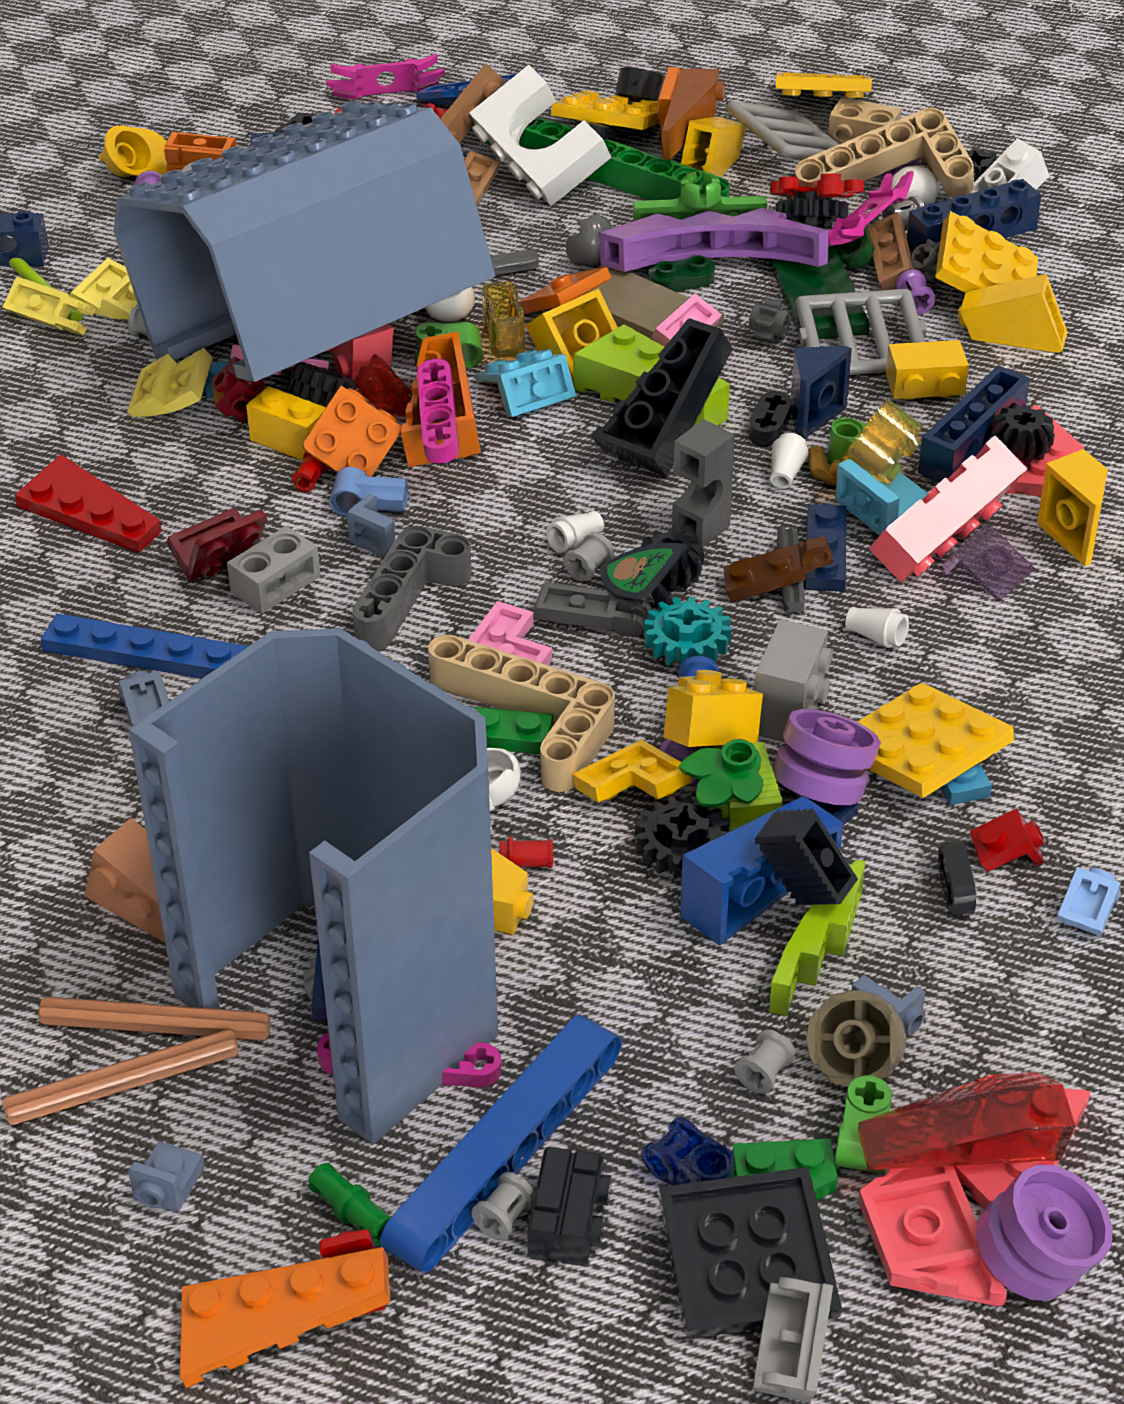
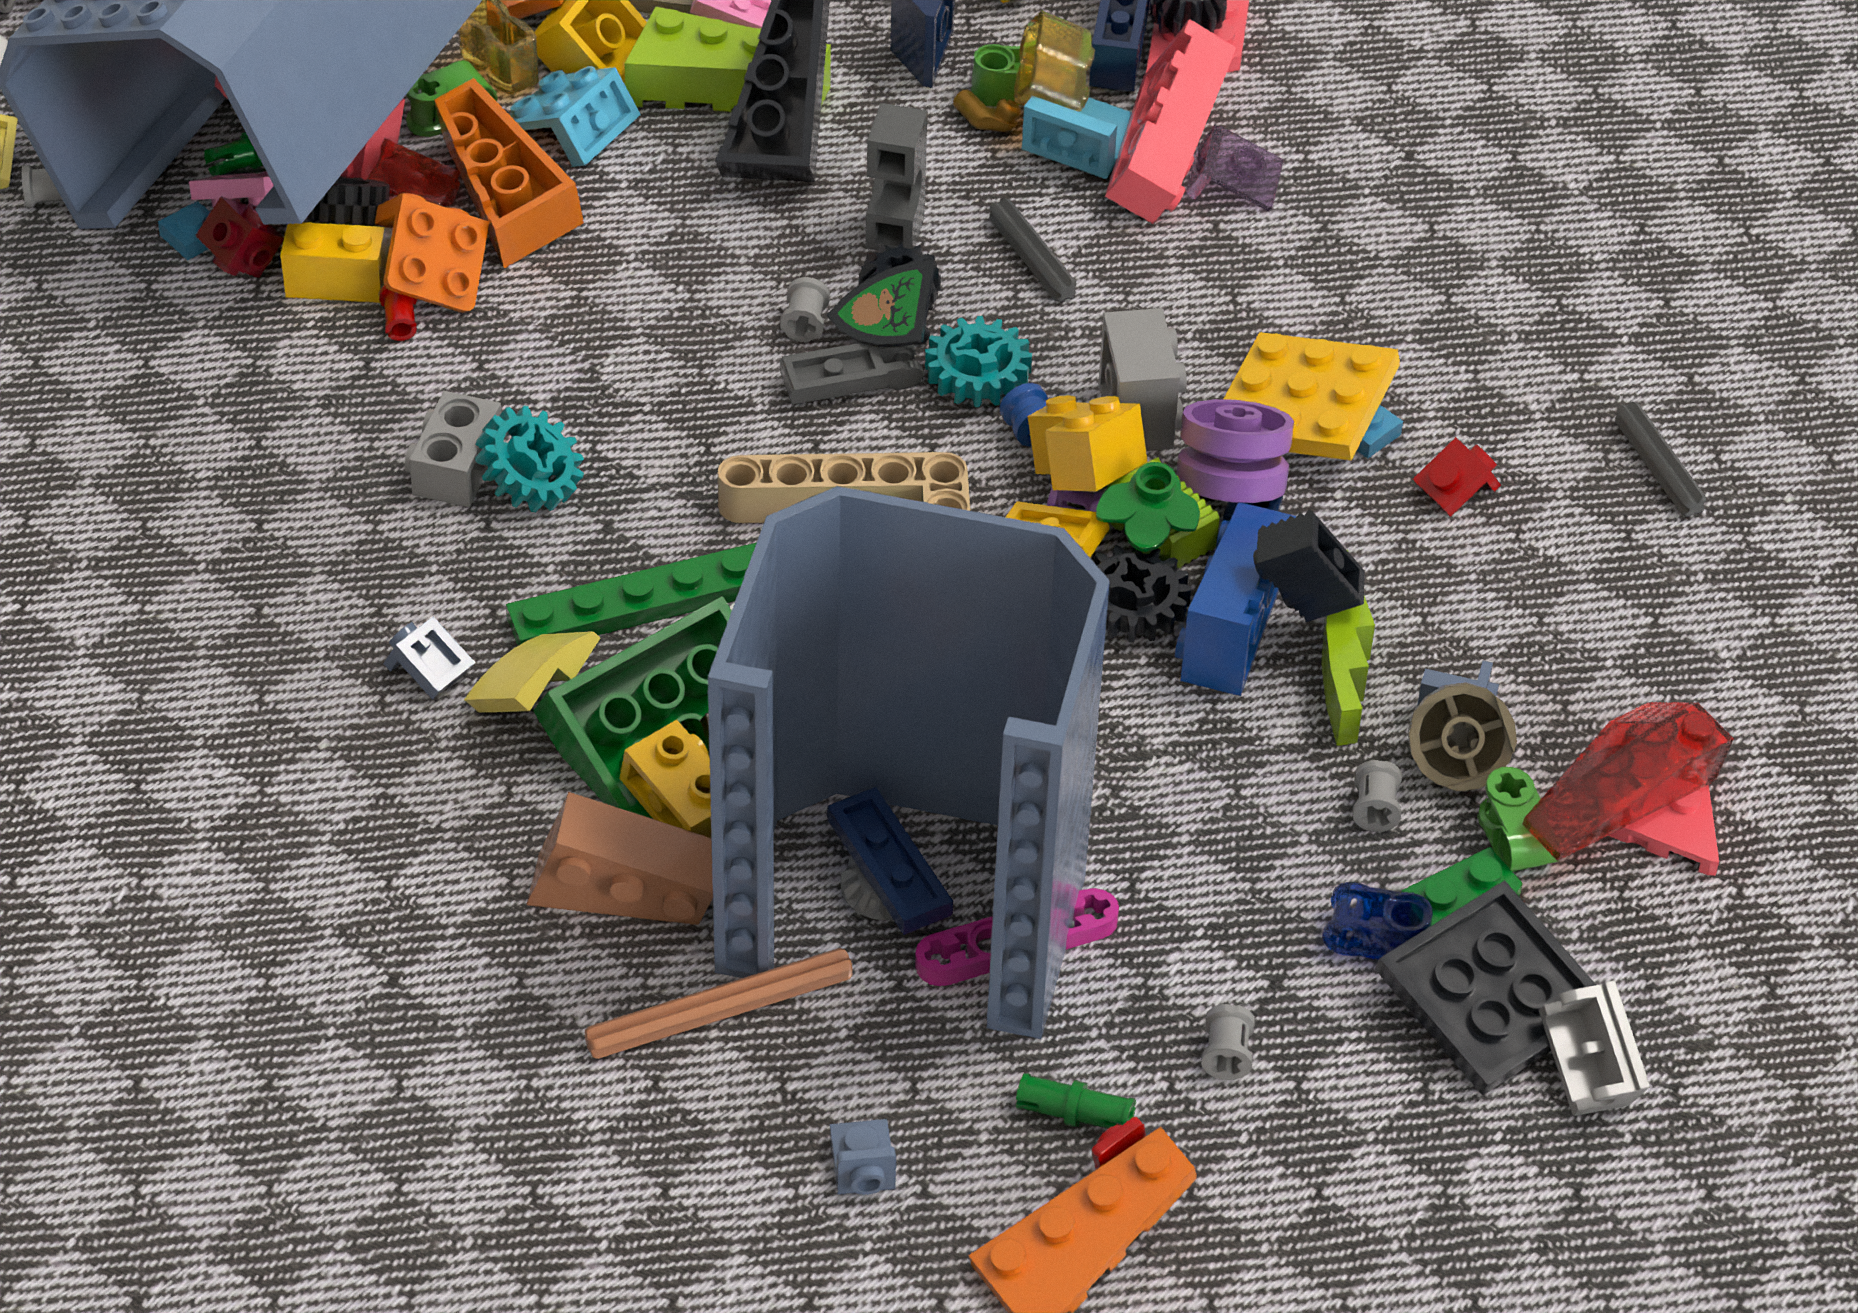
camera: 30 degrees left, 5 degrees up
(88, 505) = (147, 445): red wing -> none
(119, 1077) = (731, 1078): nougat axle -> none
(136, 646) = (438, 585): blue plate -> none
(170, 385) = (140, 259): light yellow slope -> none
(214, 542) = (365, 440): dark red bracket -> none
(331, 591) = (529, 458): none -> teal gear
(353, 485) = (480, 321): medium blue piece -> none
(370, 528) = (531, 360): sand blue bracket -> none
(412, 561) = (617, 376): dark grey beam -> none
(437, 410) = (532, 185): dark pink beam -> none
(500, 1143) = (1181, 979): blue beam -> none
(505, 629) = (773, 430): bright pink plate -> none
(567, 1205) = (1291, 1016): black brick -> none
(568, 531) = (763, 286): white cone -> none
(764, 416) = (876, 73): black beam -> none
(776, 568) = (1024, 254): reddish brown hinge -> none
(787, 458) = (943, 117): white cone -> none
(830, 522) = (1050, 208): dark blue plate -> none
(881, 625) = (1172, 282): white cone -> none
(928, 1234) = (1642, 902): coral wing -> none
(956, 878) = (1435, 534): black beam -> none
(1044, 1232) = (1755, 854): medium lavender wheel -> none
(1073, 502) = (1297, 72): yellow slope -> none
(1090, 900) = (1577, 508): light blue bracket -> none

